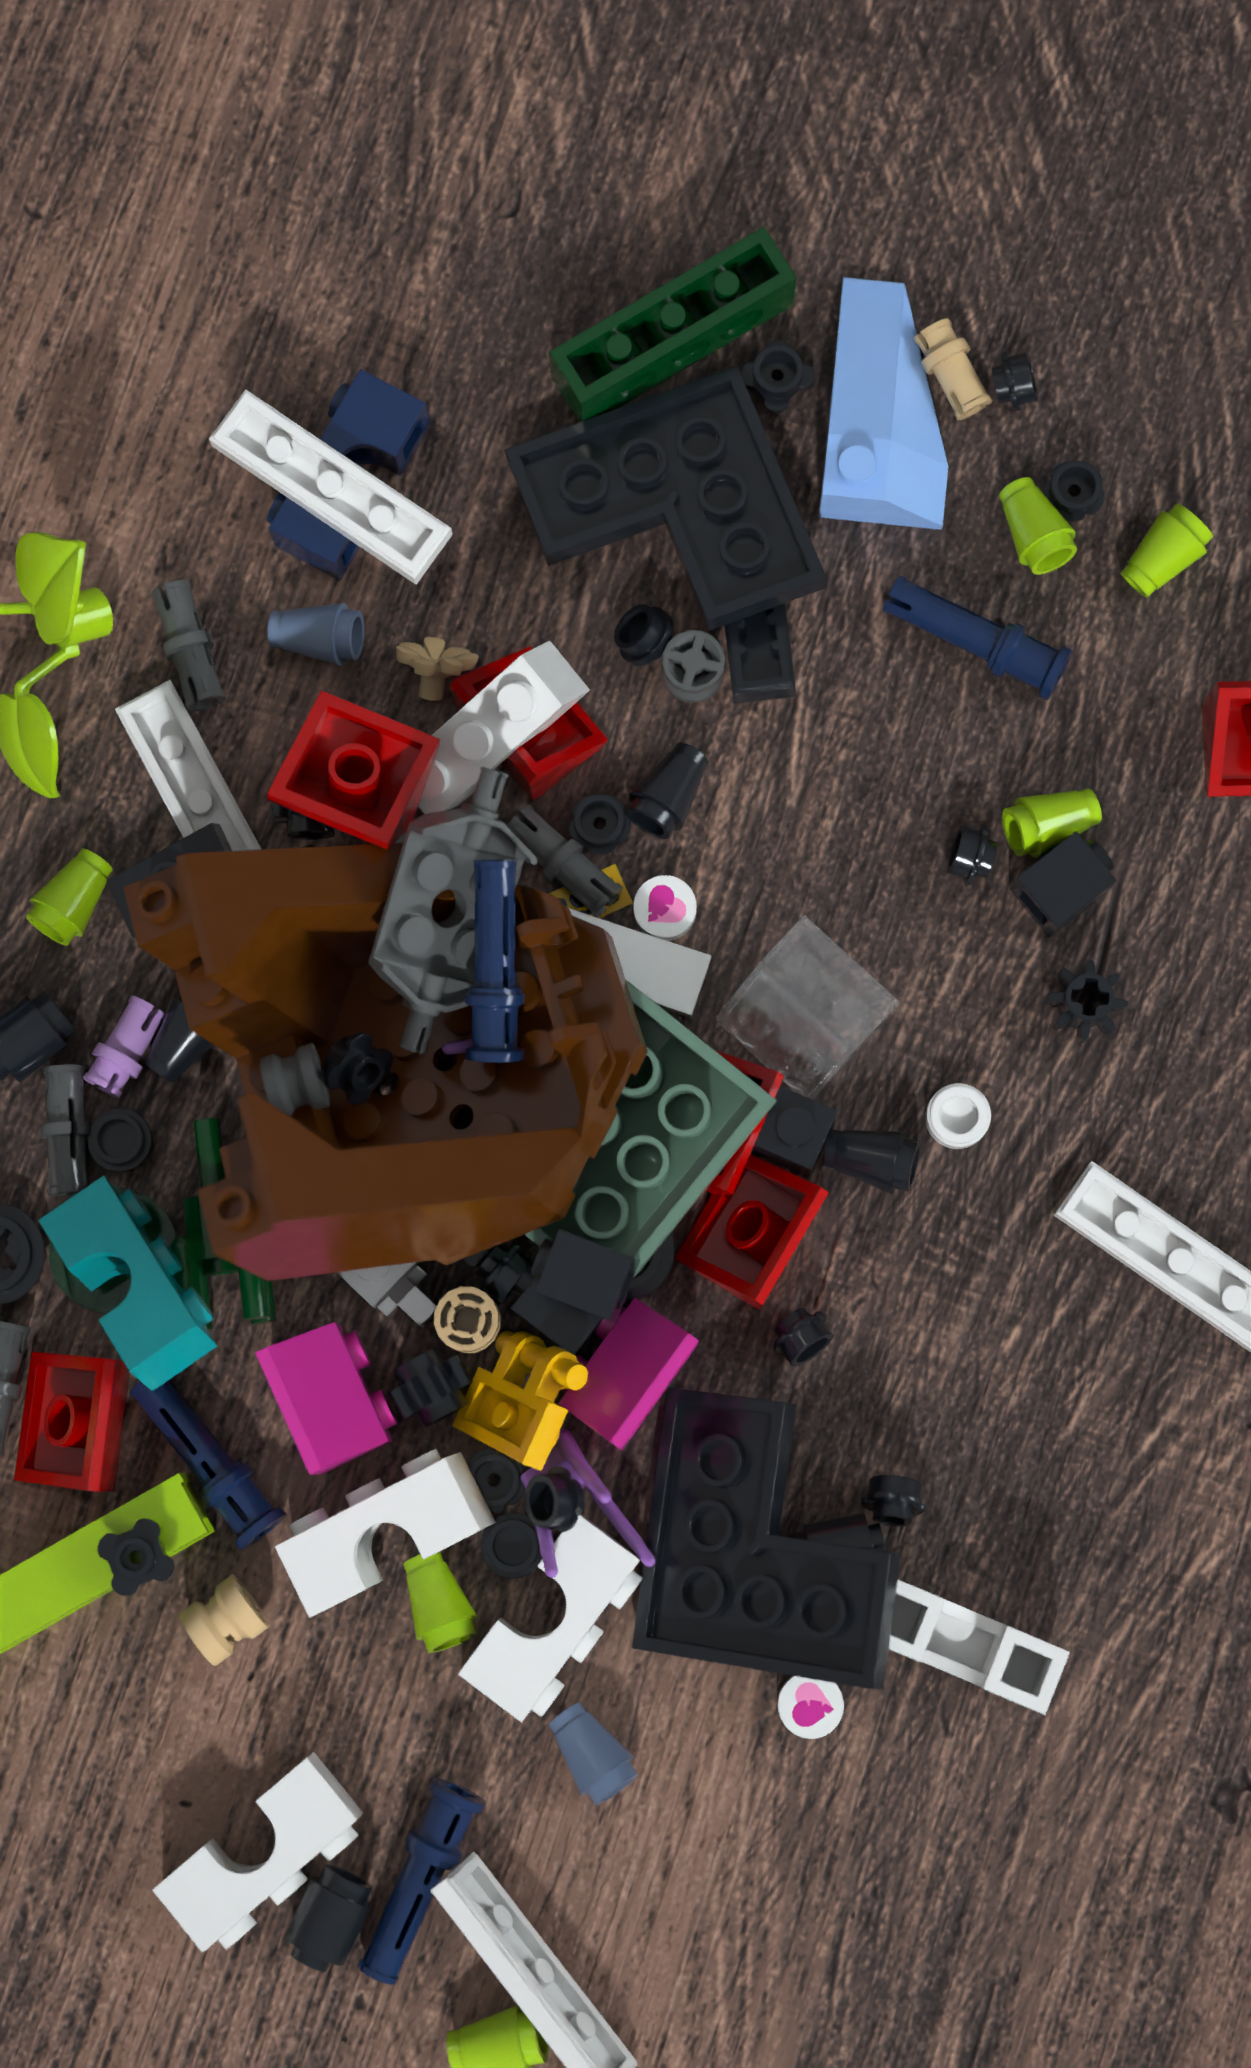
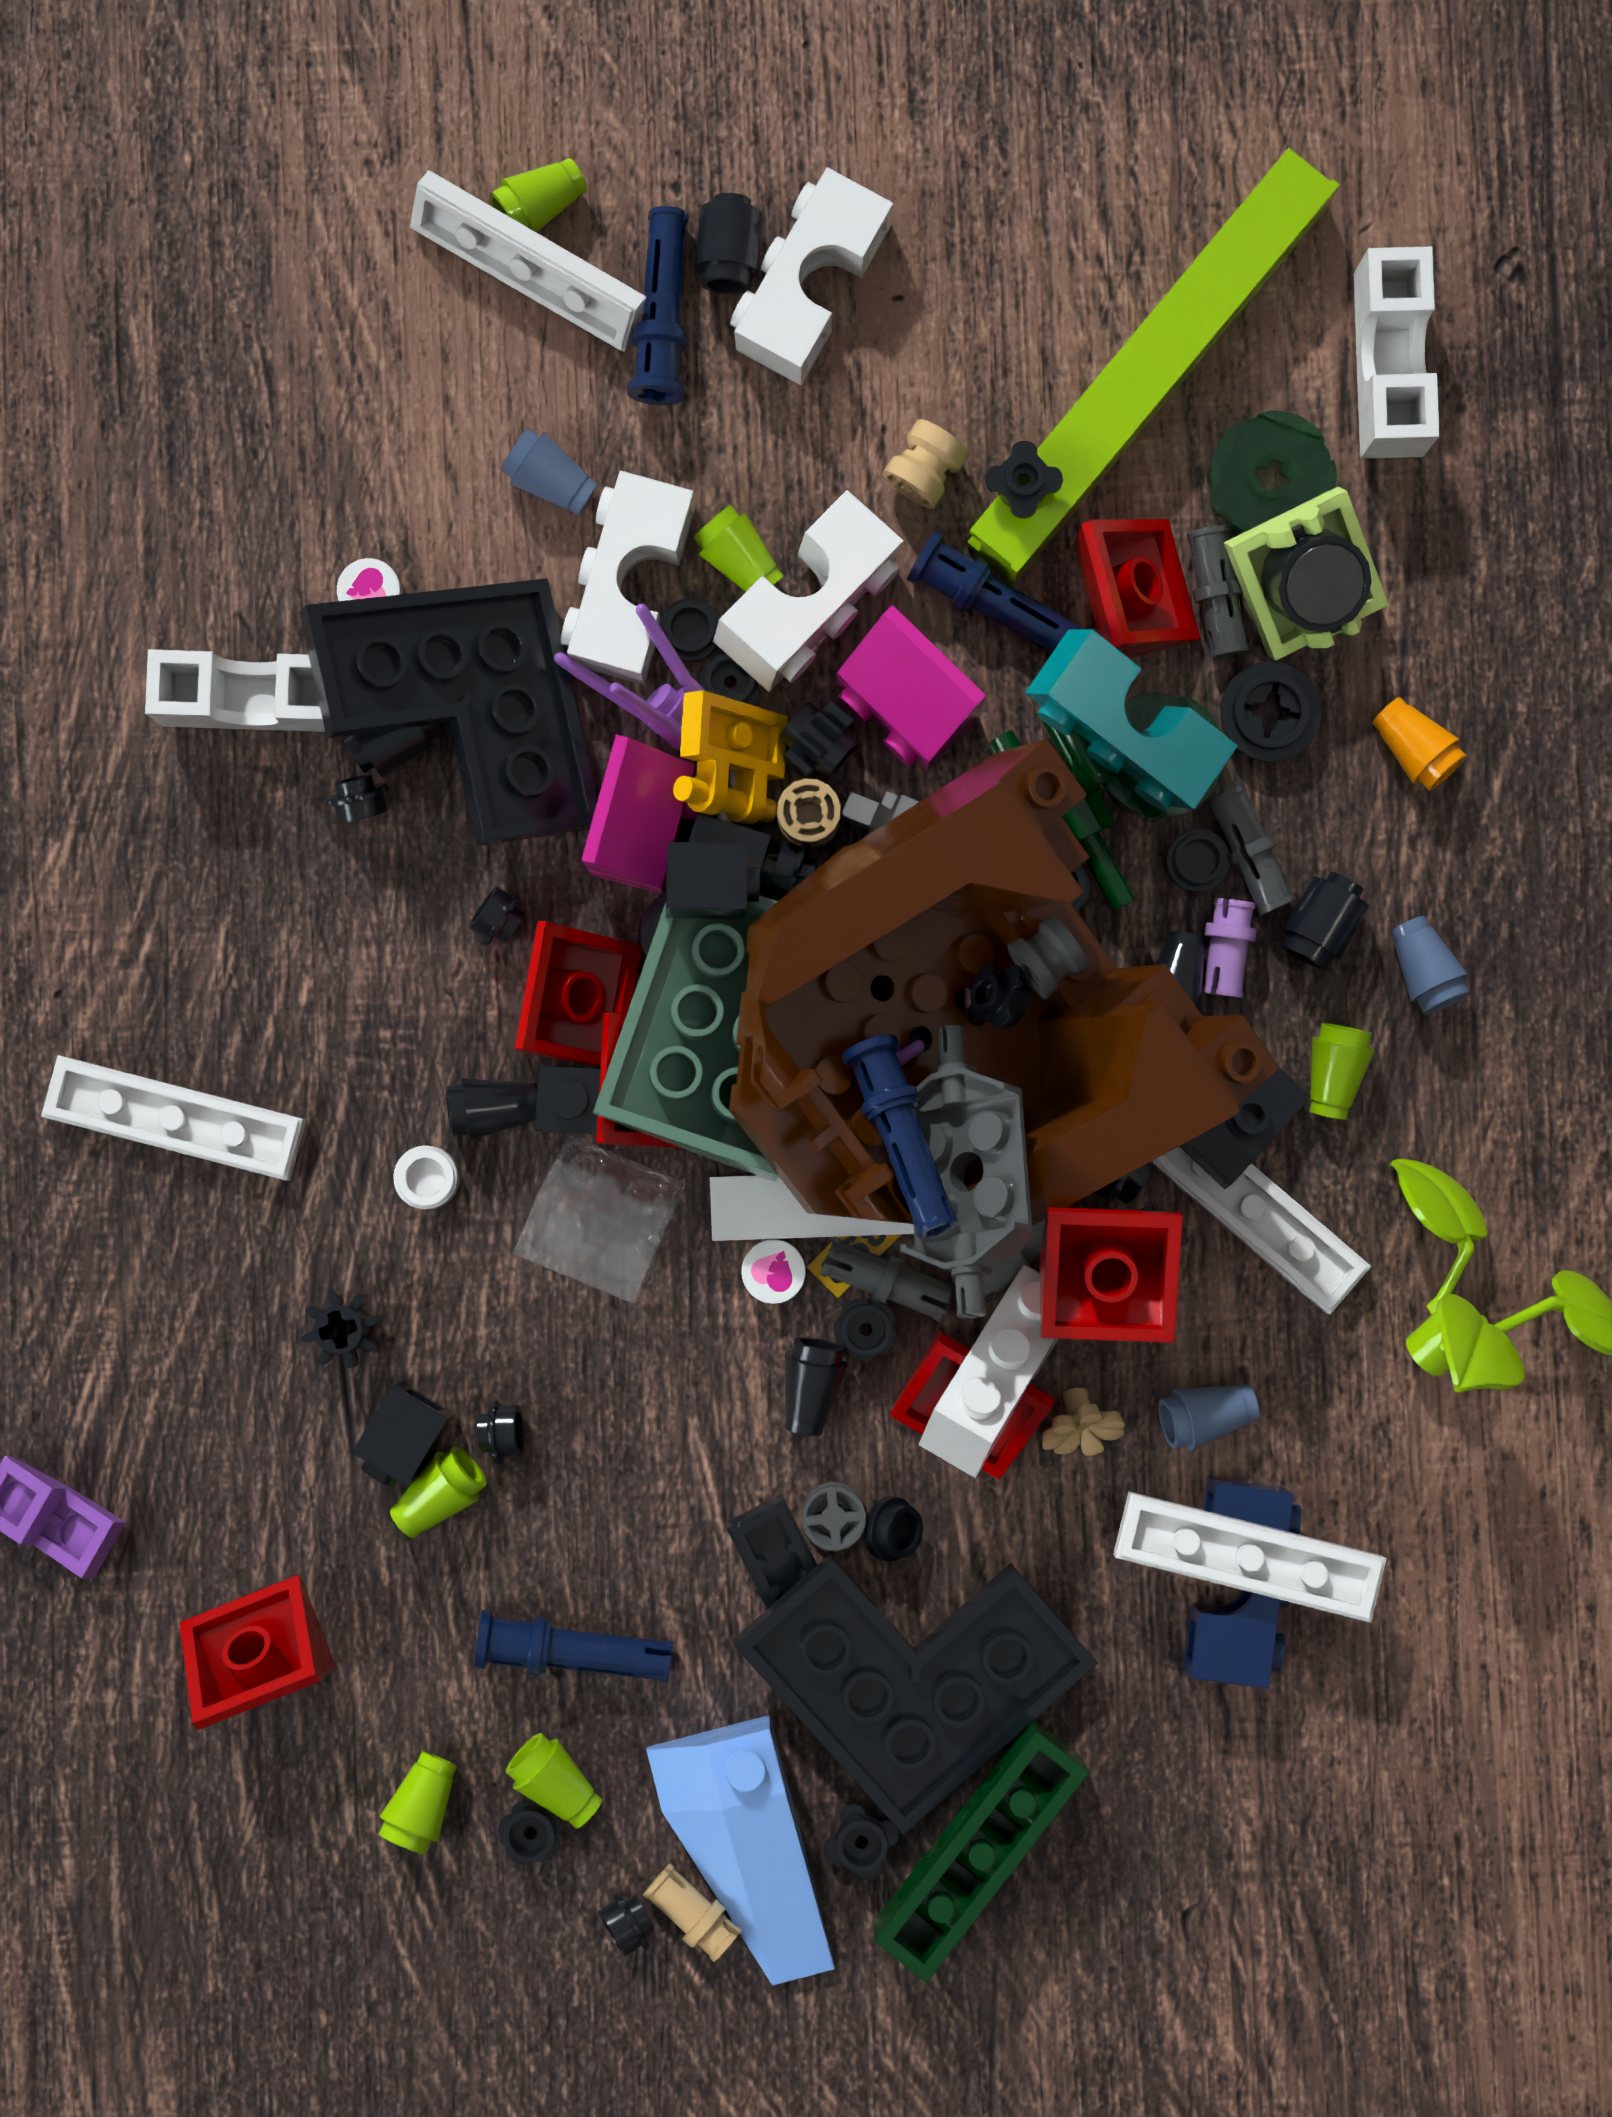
camera: 160 degrees right, 5 degrees up
(188, 645) = (1326, 1355): dark grey pin -> none
(554, 1500) = (663, 674): black plate -> none

